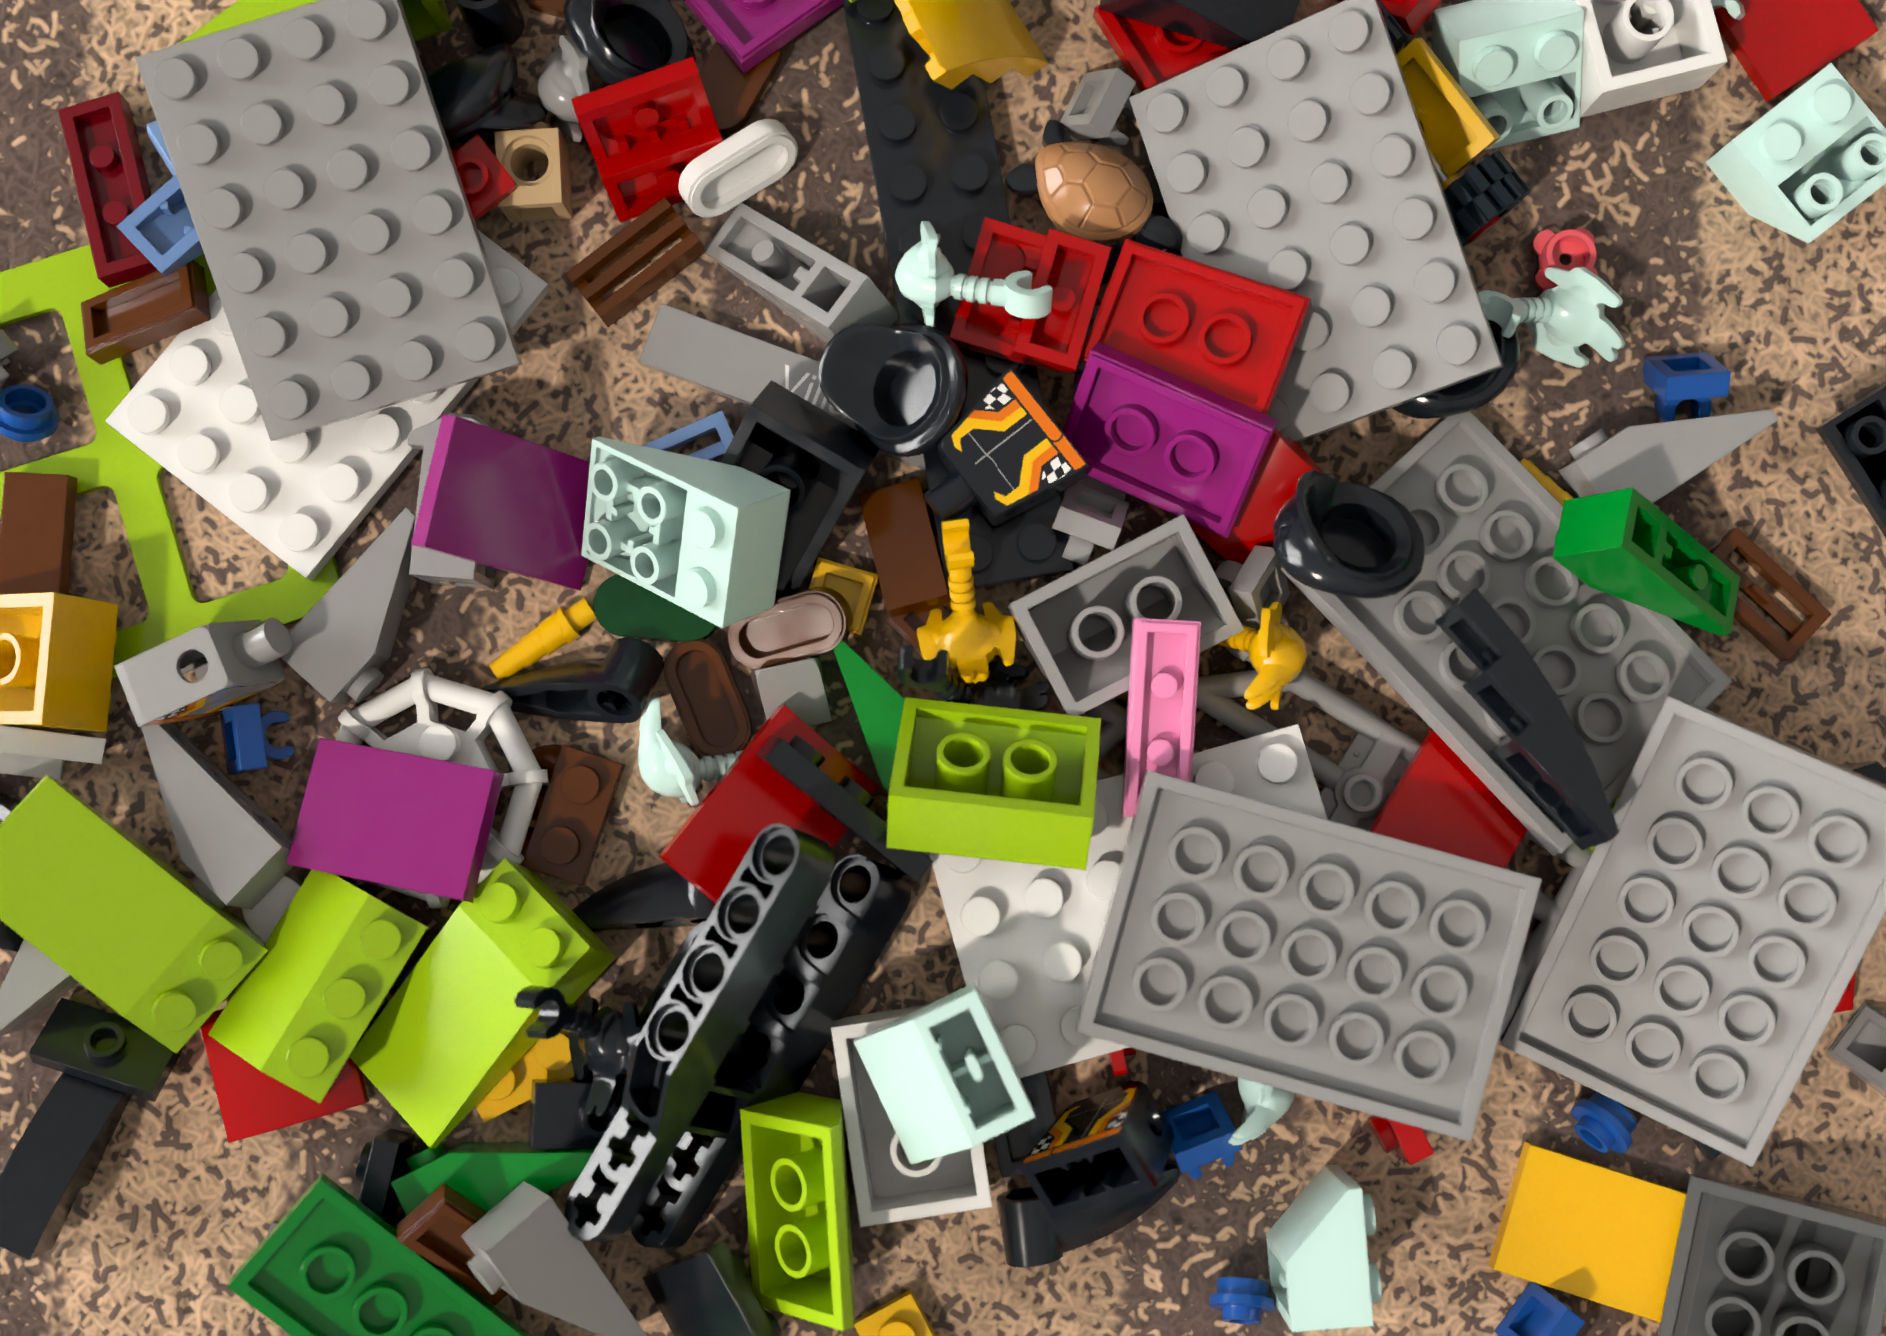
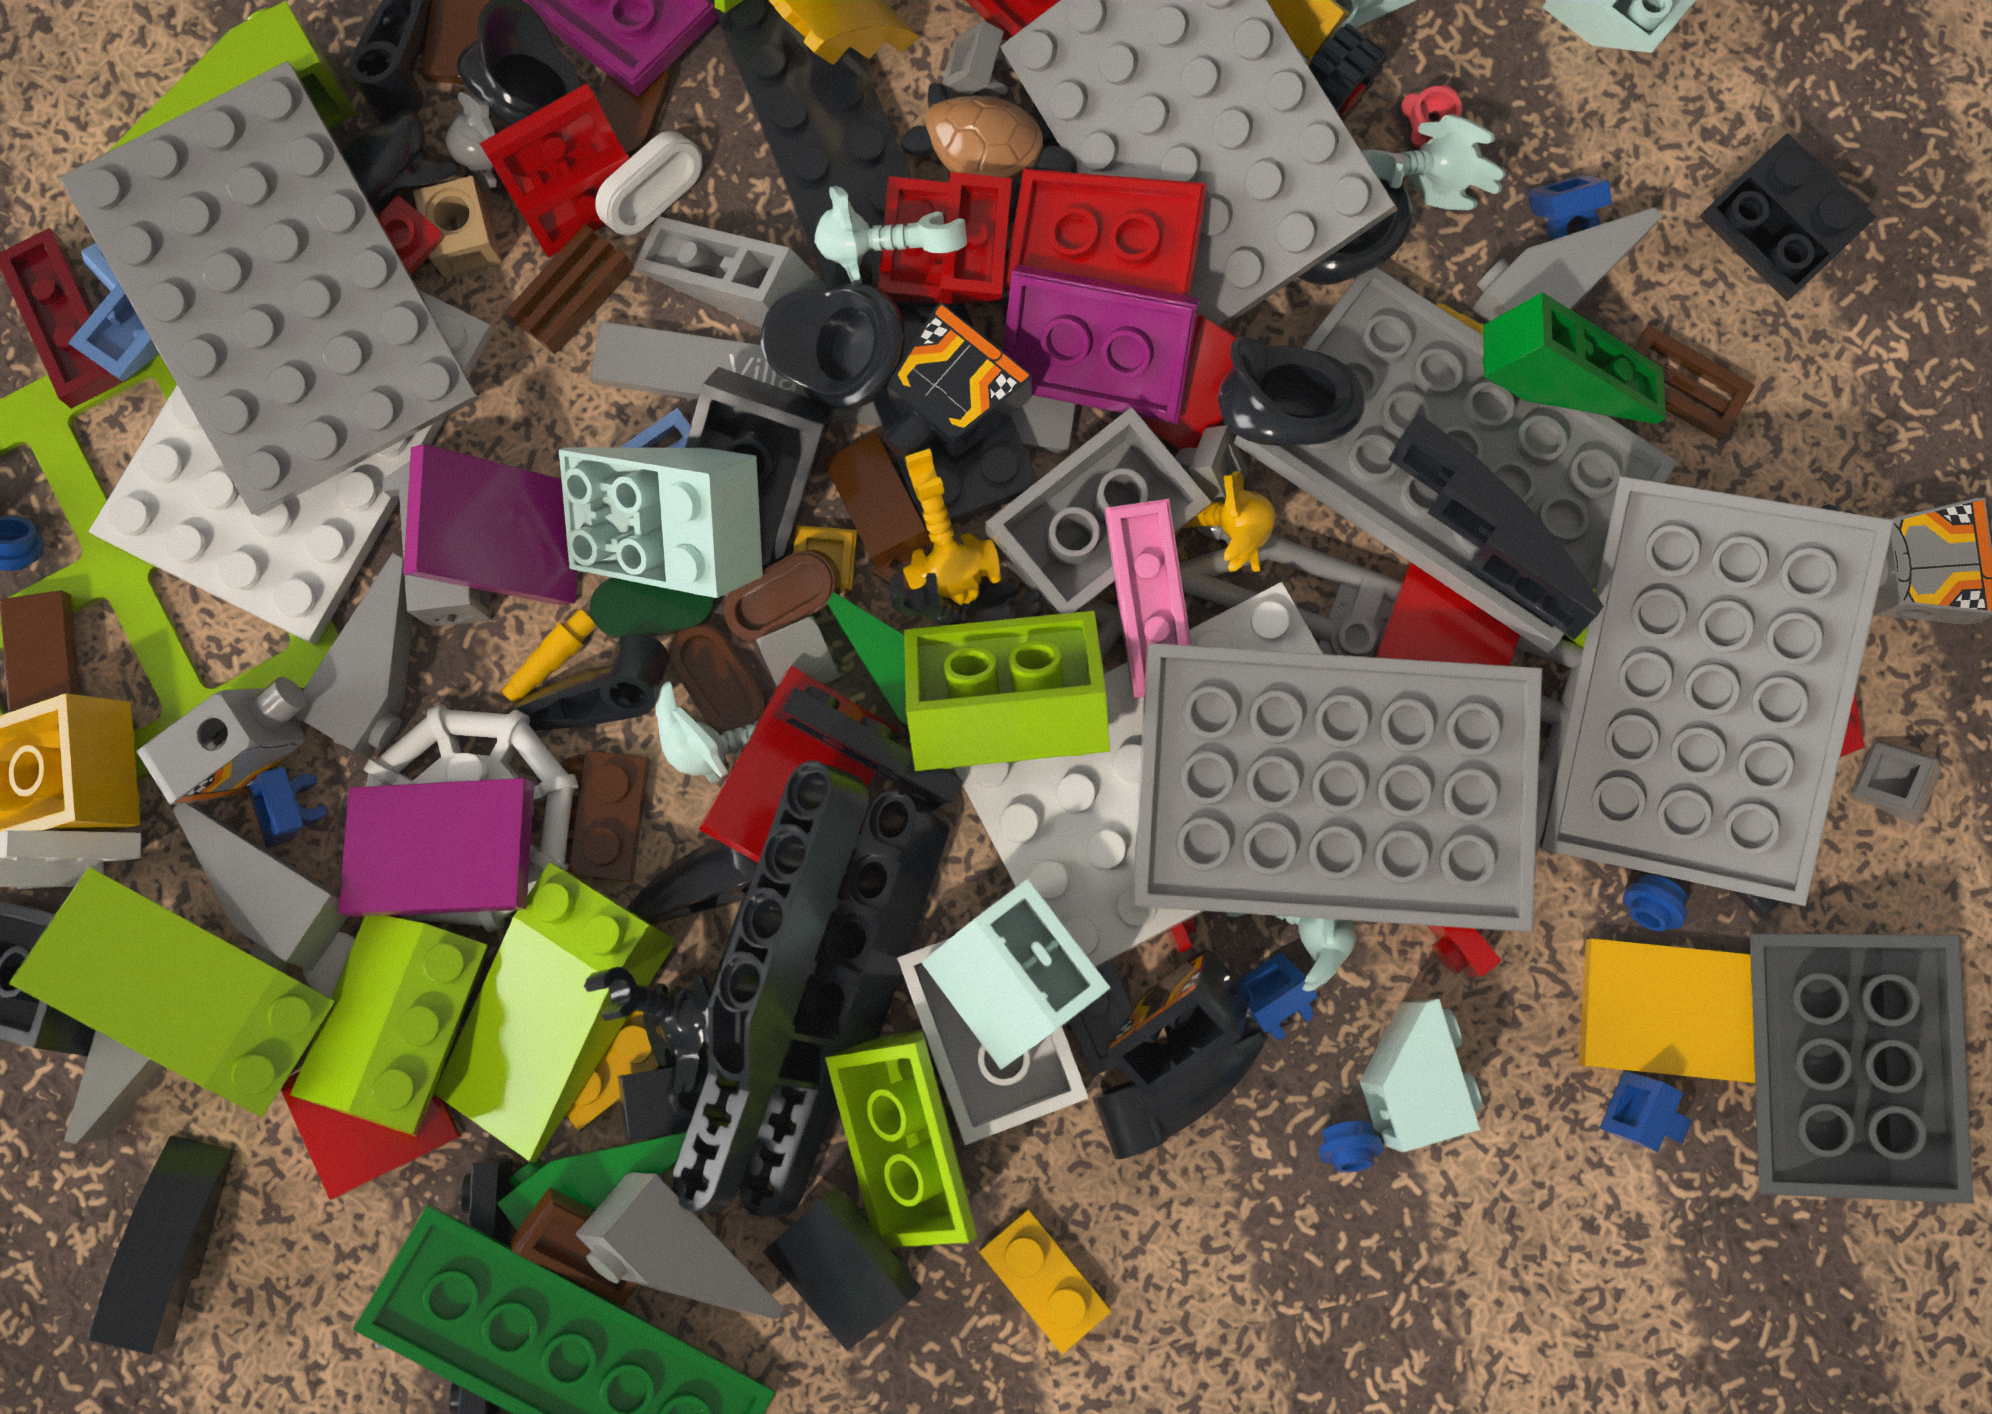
camera: 15 degrees left, 5 degrees down
(103, 1050) = (193, 1137): black plate -> none
(144, 312) = (109, 422): reddish brown tile -> none
(1089, 520) = (1044, 434): light grey tile -> none

